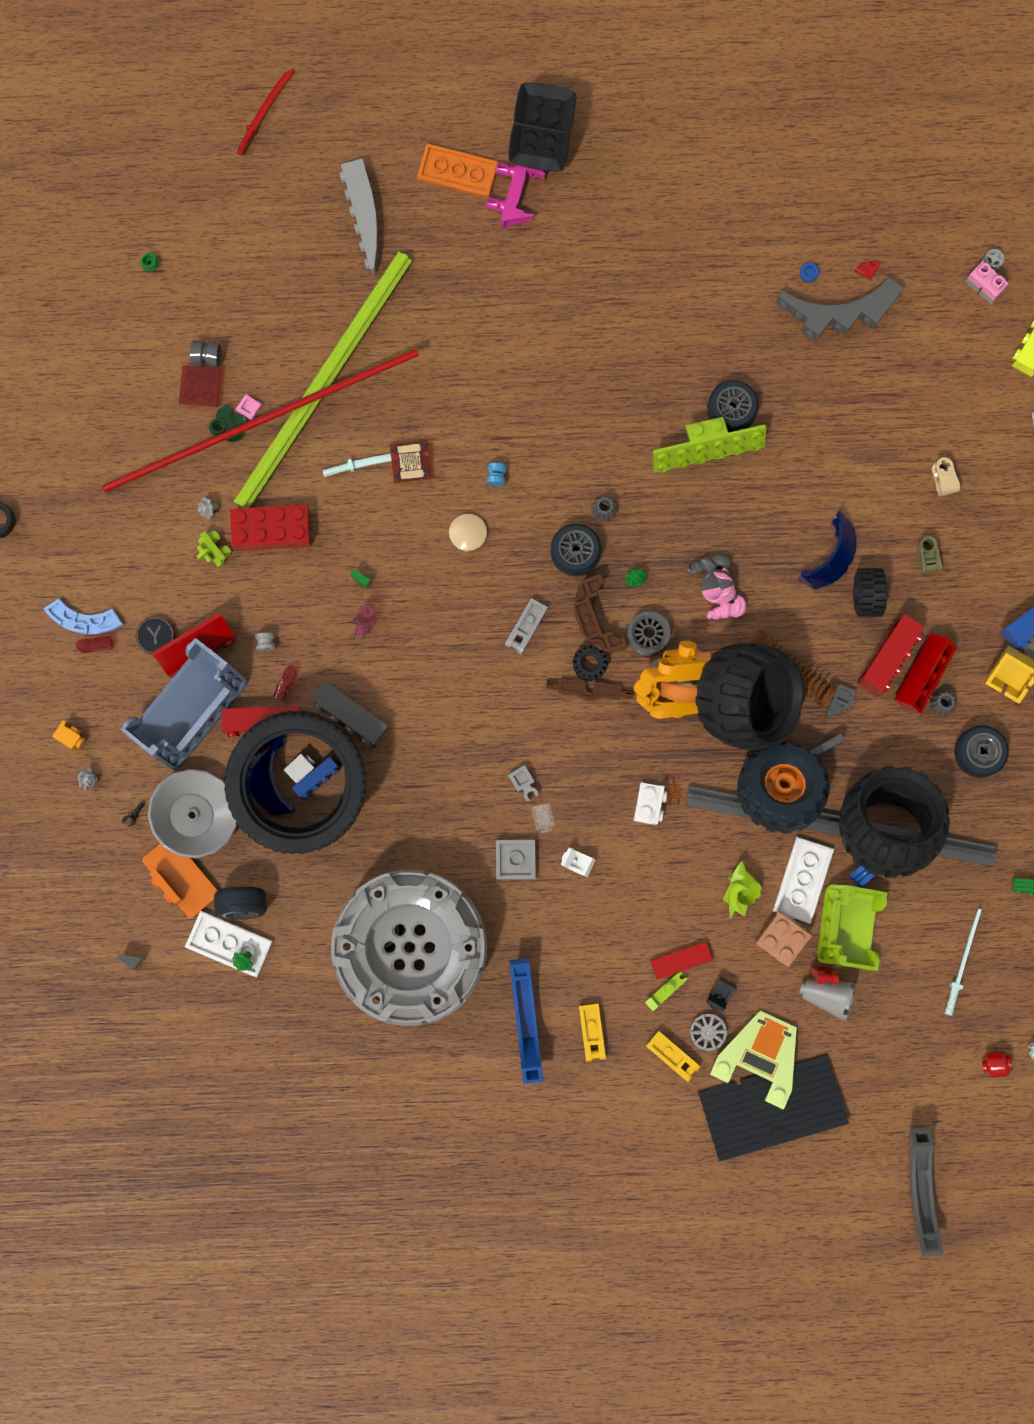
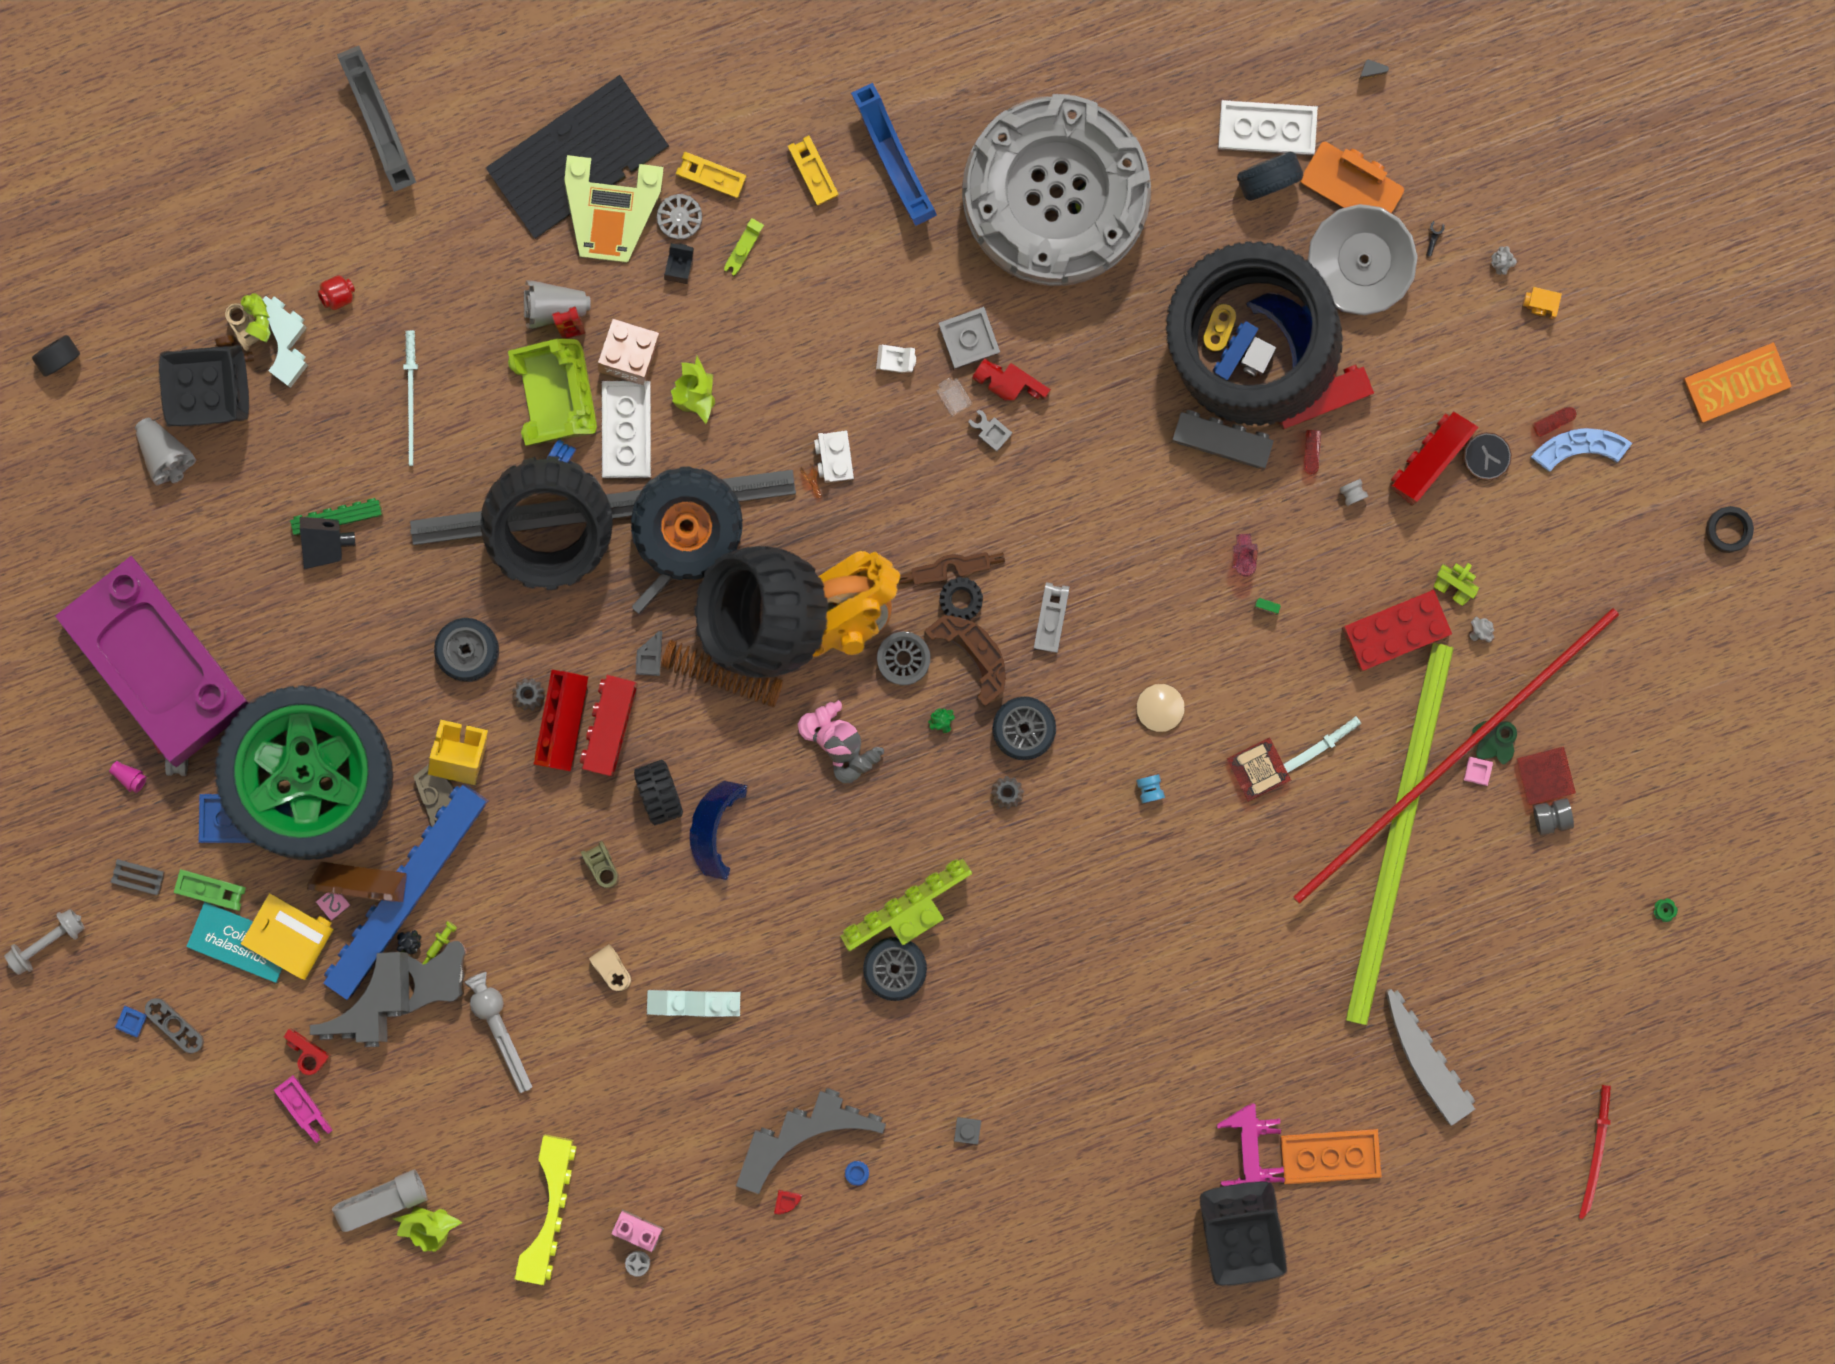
camera: 160 degrees right, 5 degrees up
(186, 707) = (1417, 380): sand blue windscreen -> none
(242, 961) = (1243, 111): green plant -> none
(321, 801) = (1219, 328): none -> yellow plate
(497, 814) = (1010, 382): none -> red plate
(681, 960) = (737, 288): red tile -> none
(717, 275) = (967, 1130): none -> dark grey plate
(887, 428) = (693, 1003): none -> light aqua arch

